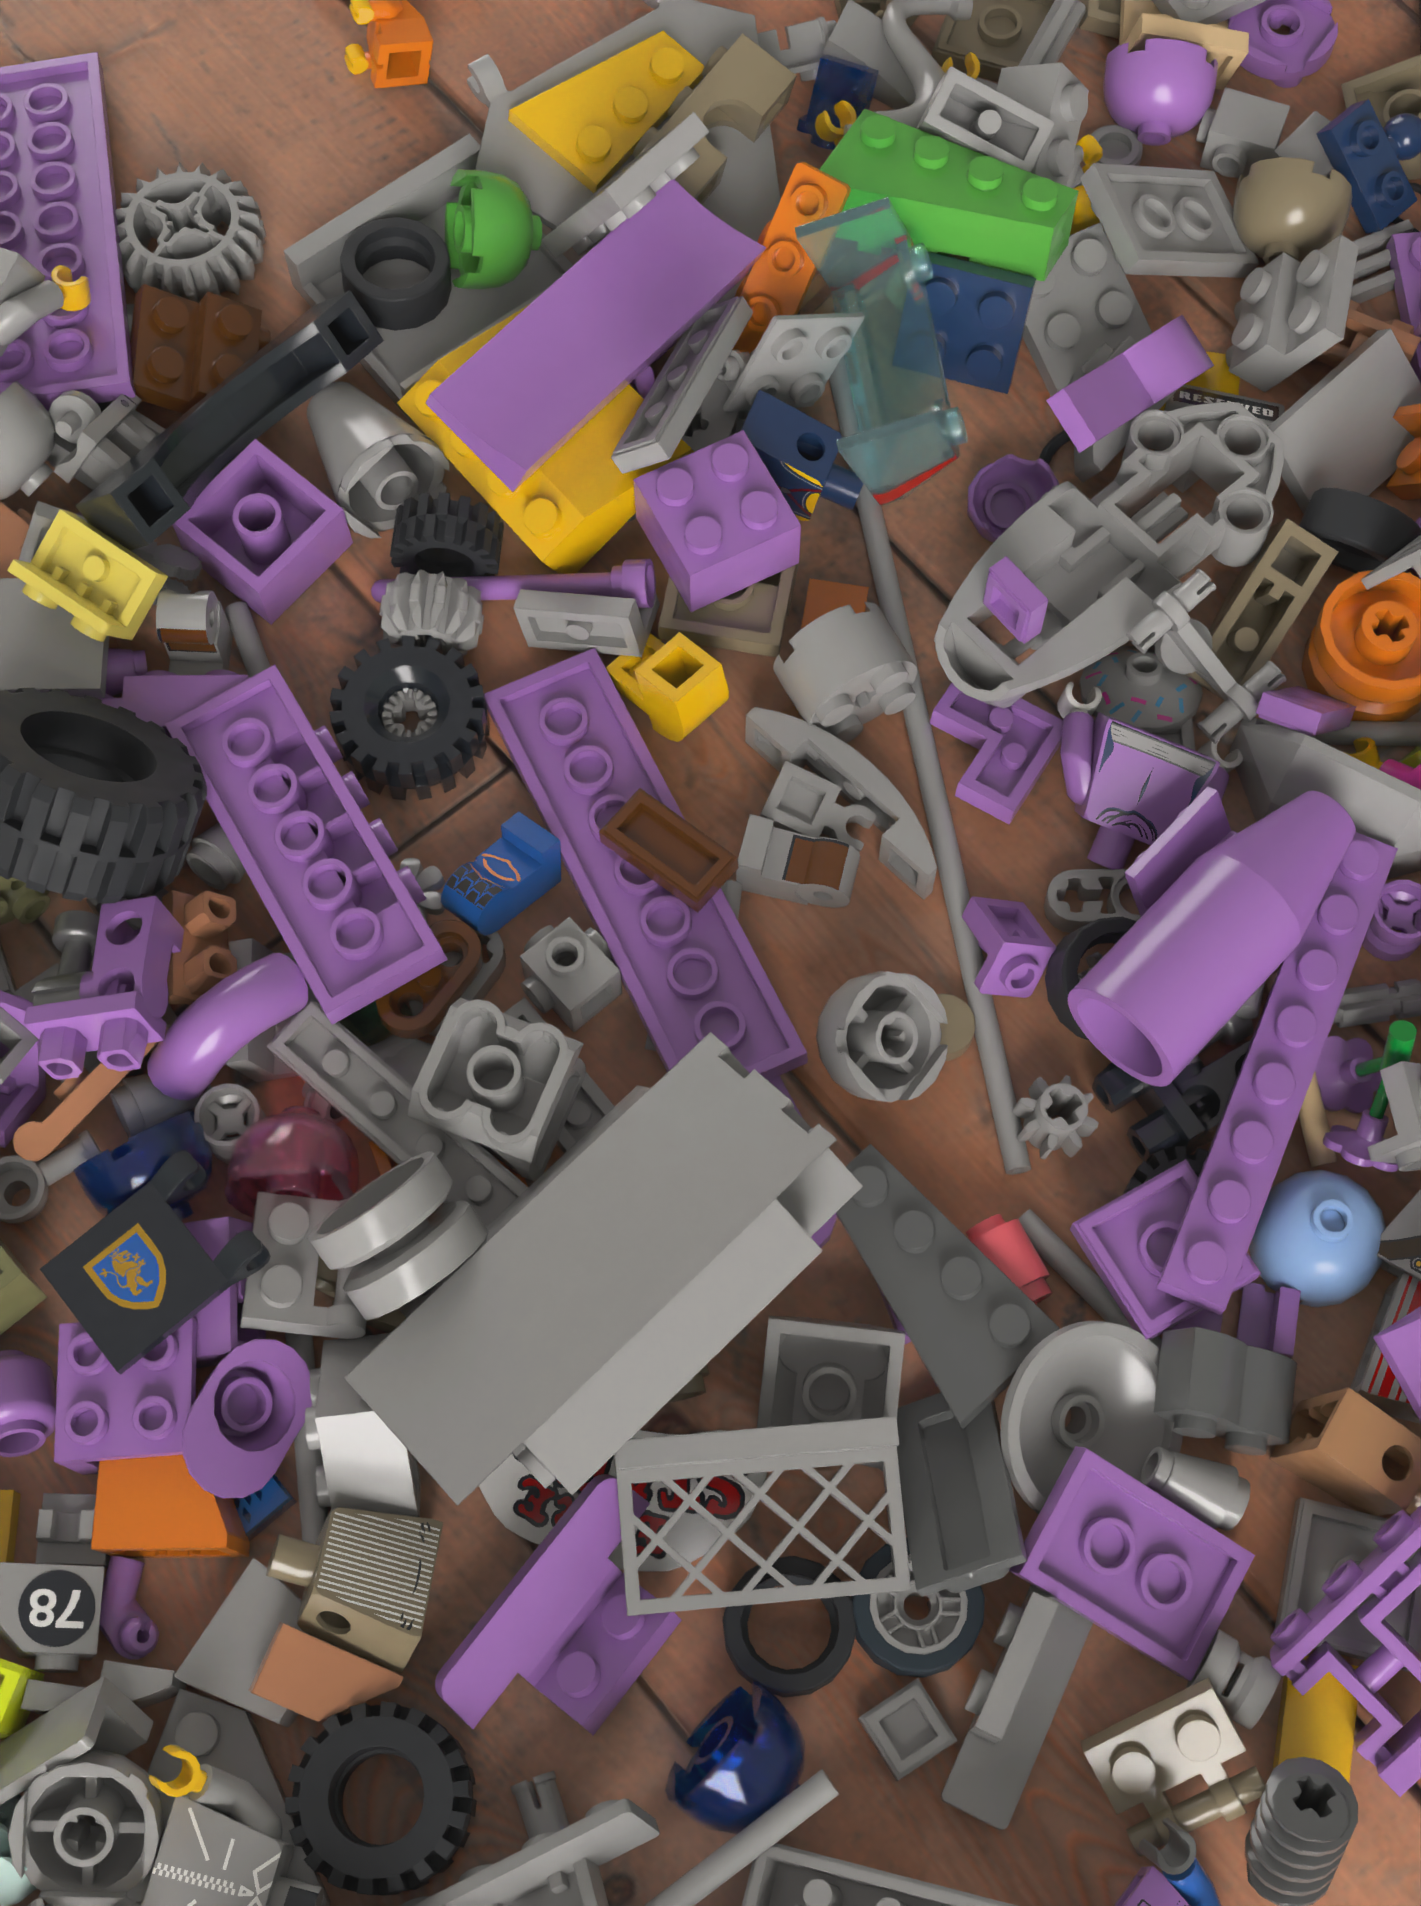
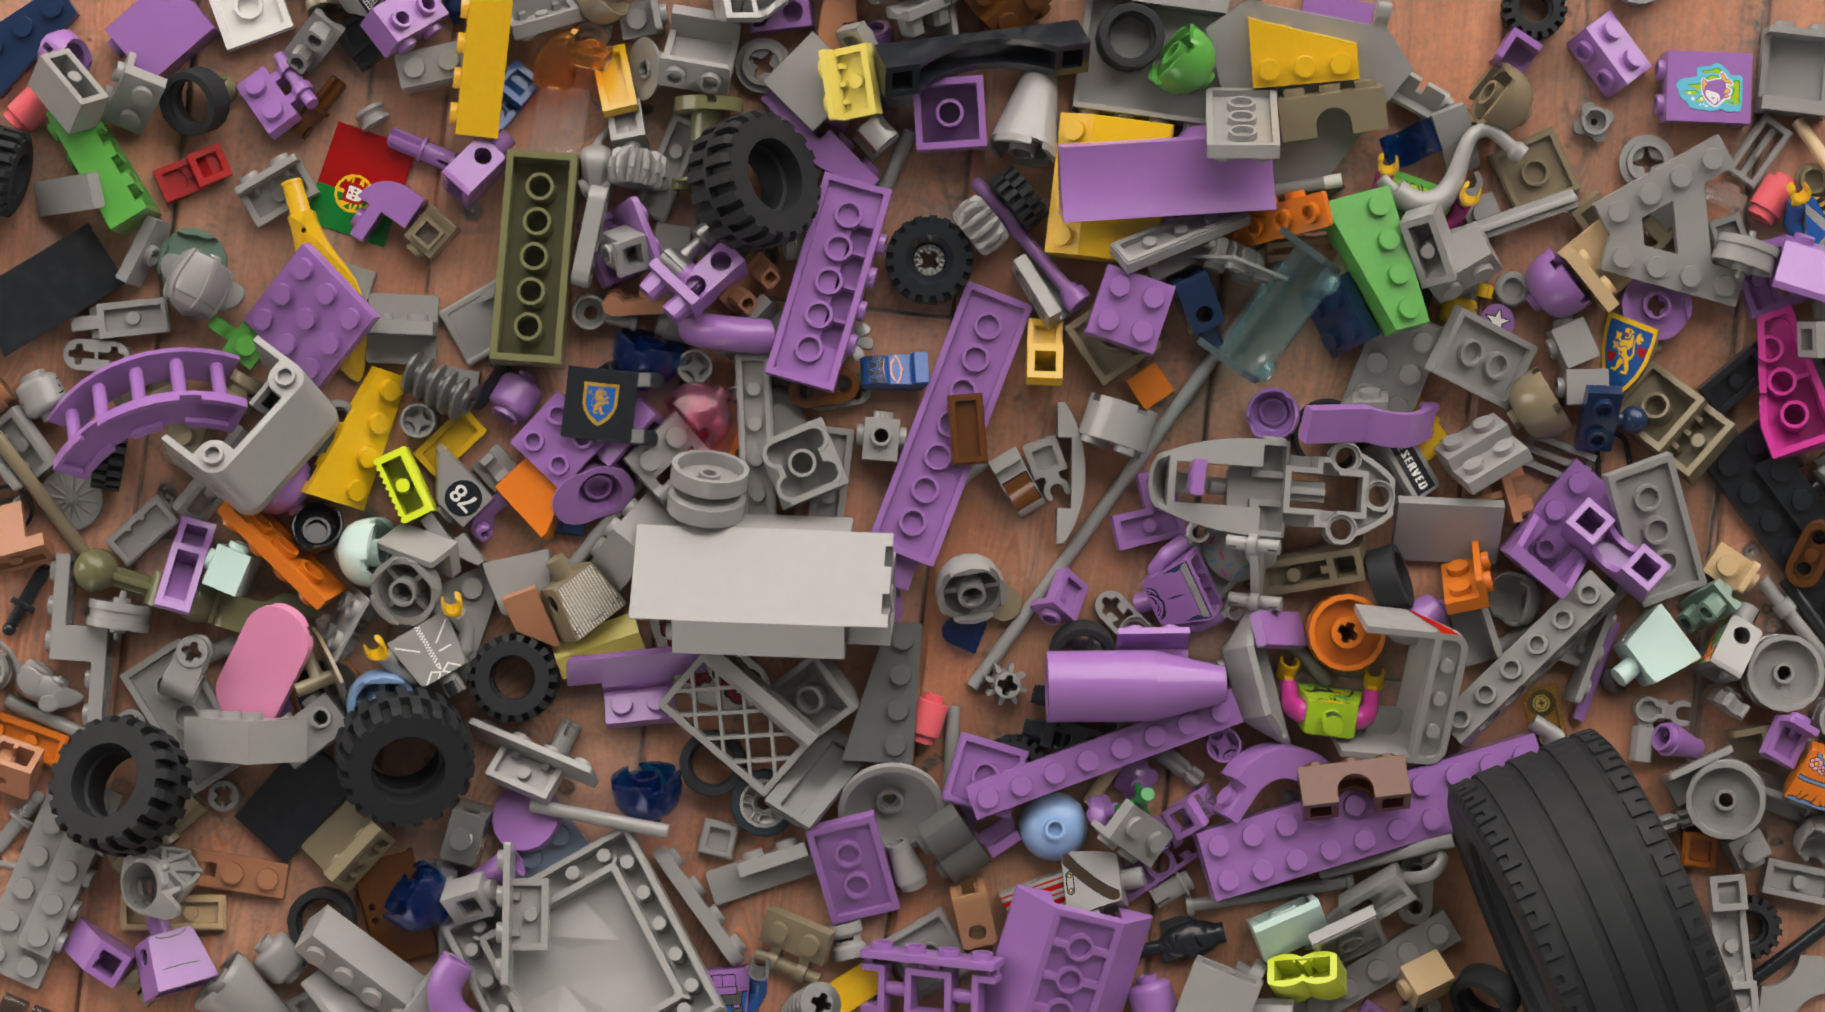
camera: 40 degrees right, 20 degrees up
(462, 1595) = (610, 636): none -> light yellow piece
(934, 1115) = (963, 635): none -> clear blue tile
(1016, 1856) = (692, 892): none -> light grey plate
(1309, 72) = (1627, 349): none -> shield

